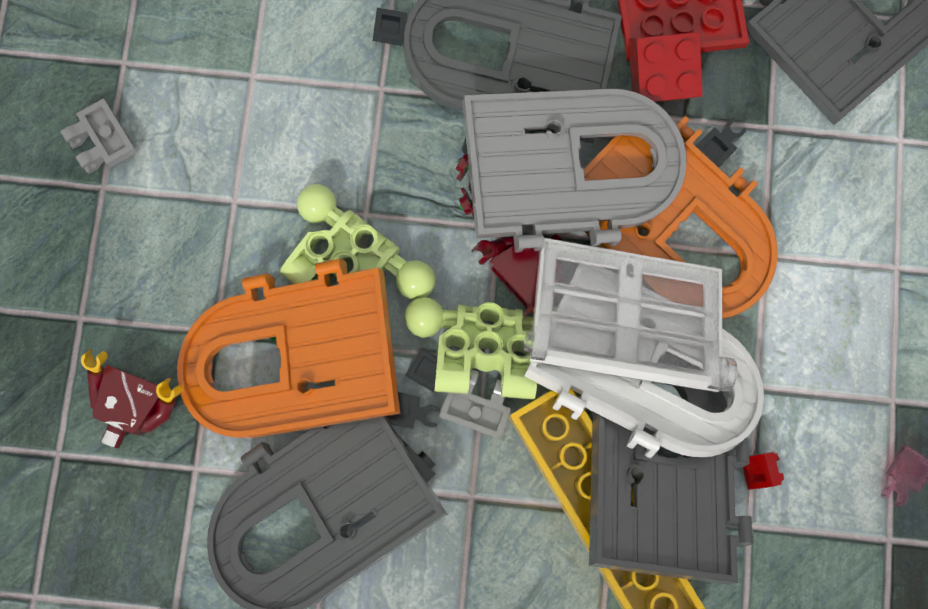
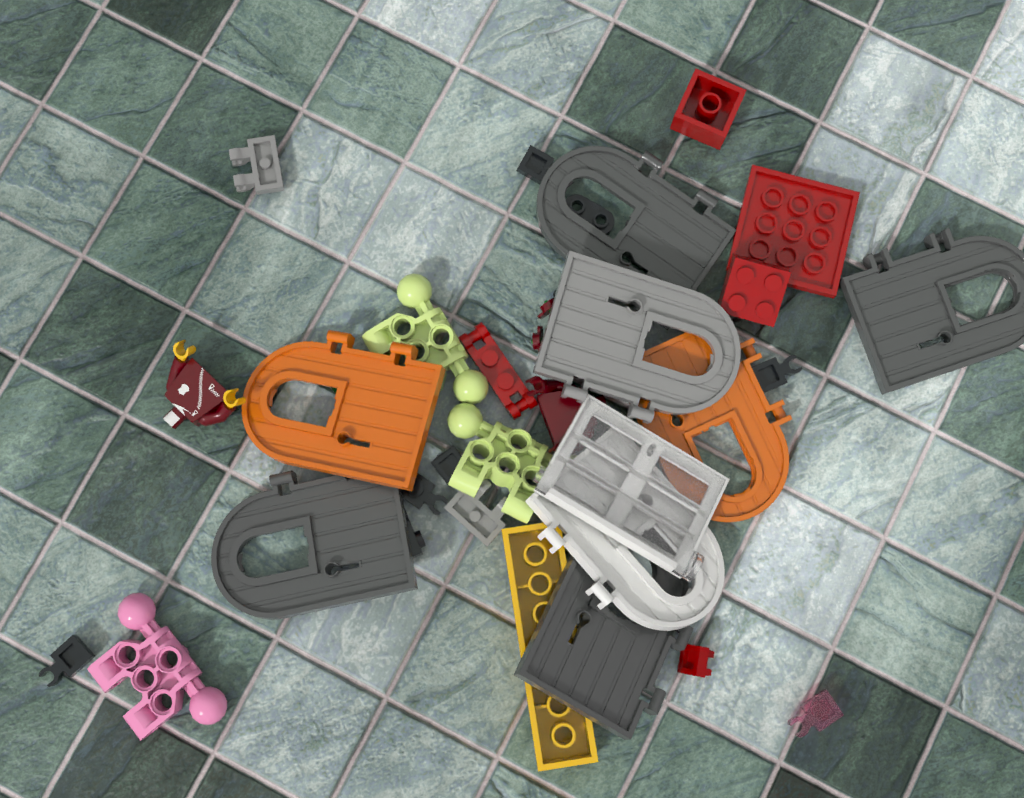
camera: 20 degrees right, 0 degrees up
(437, 252) = (497, 370): none -> red plate
(468, 52) = (591, 211): none -> black plate

